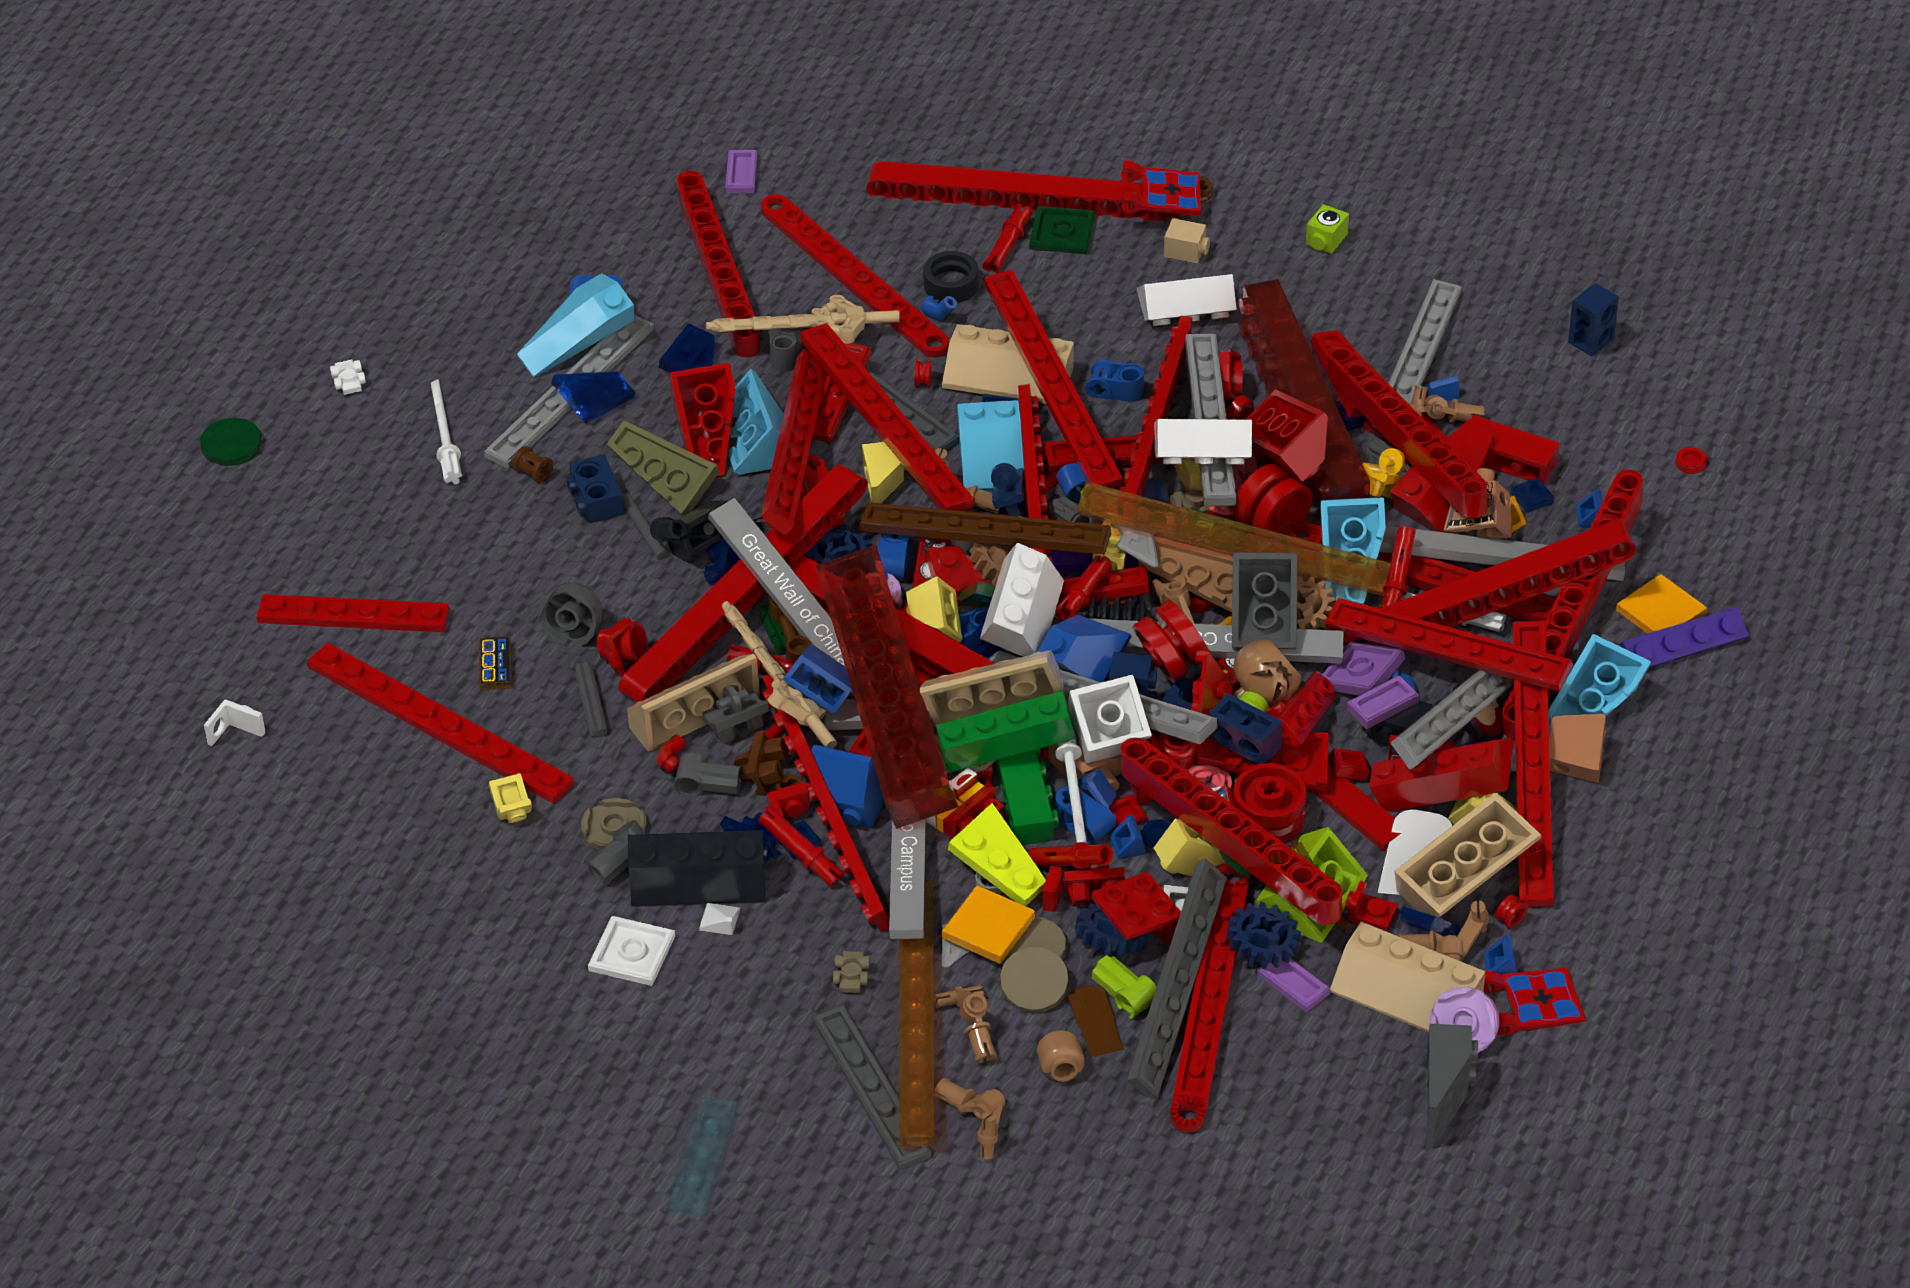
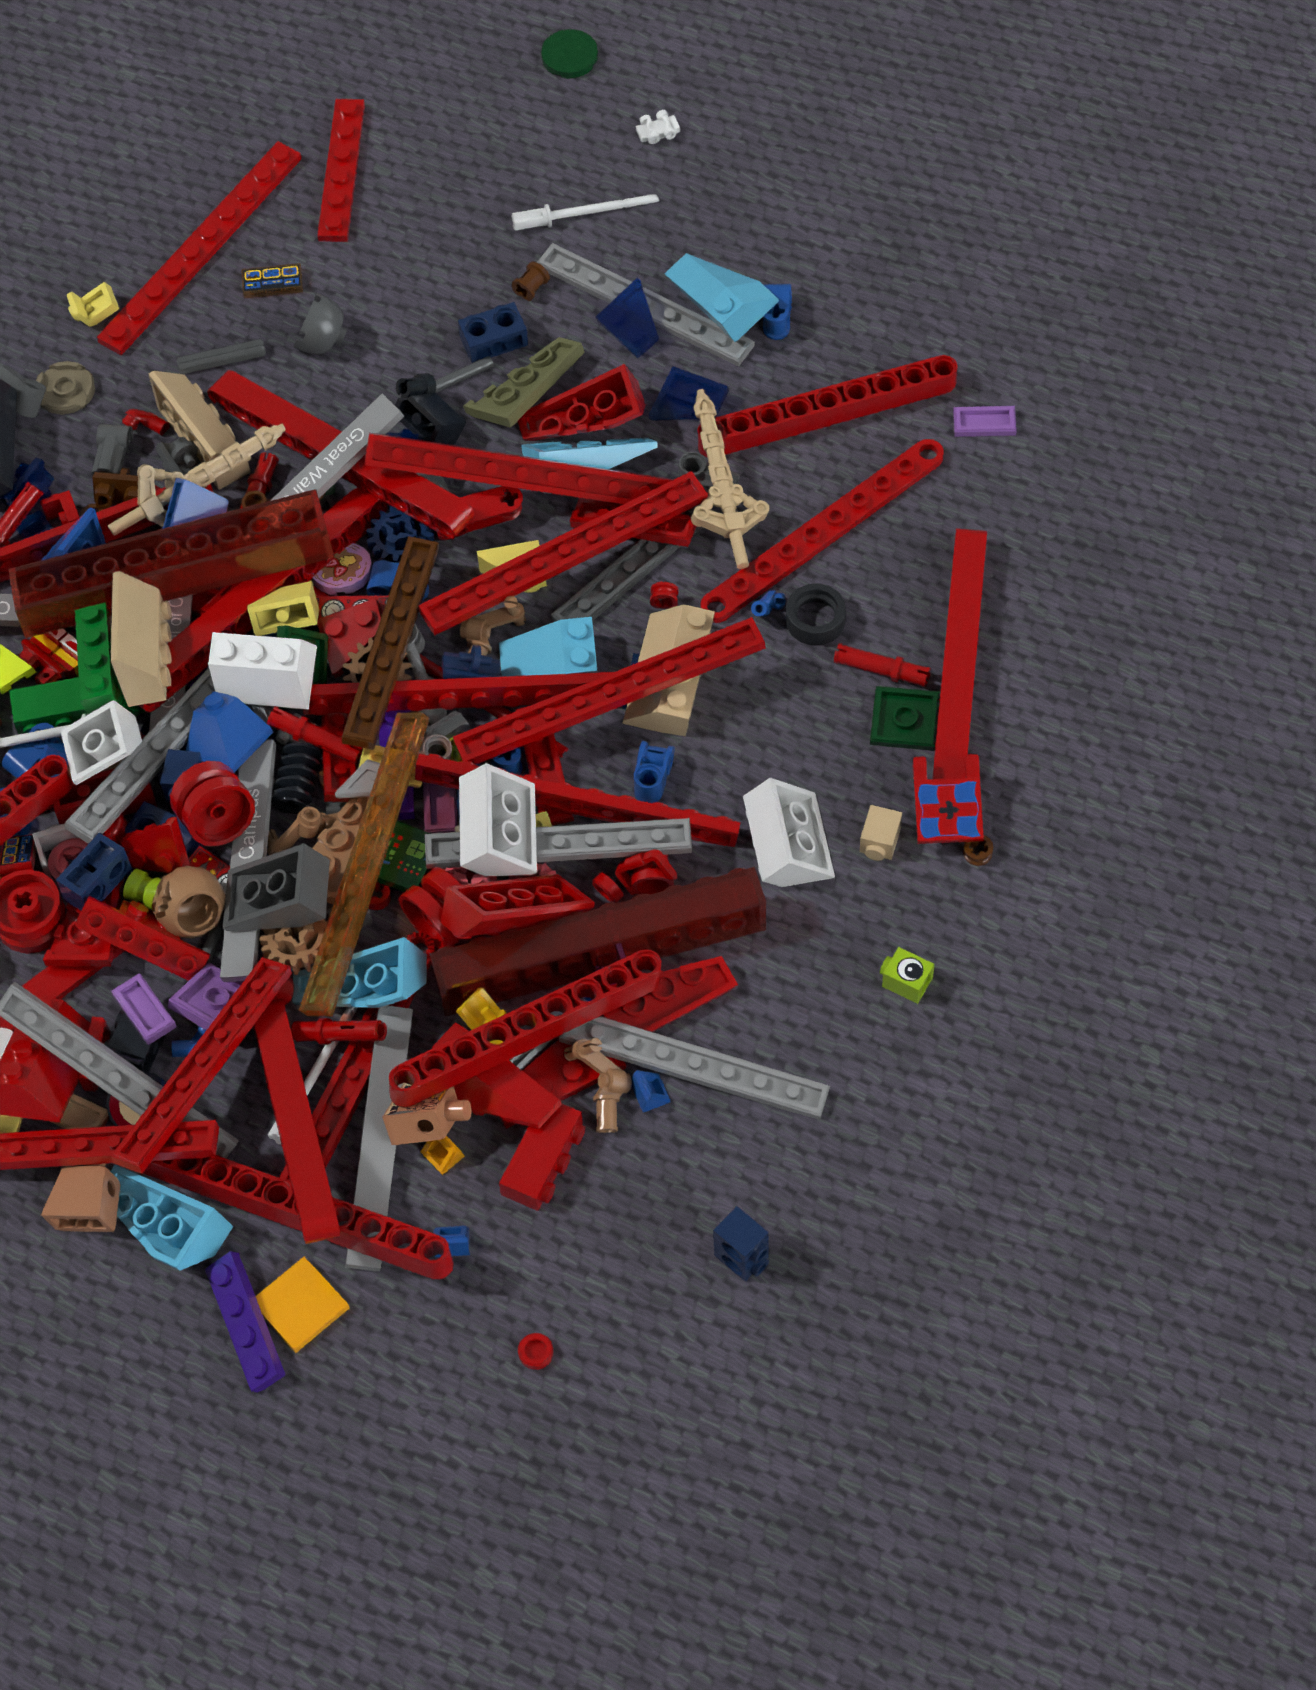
camera: 90 degrees right, 15 degrees up
(234, 715) = (207, 99): white bracket -> none
(622, 643) = (277, 371): red piece -> none
(1349, 764) = (87, 989): red tile -> none
(1532, 495) = (480, 1179): clear blue tile -> none

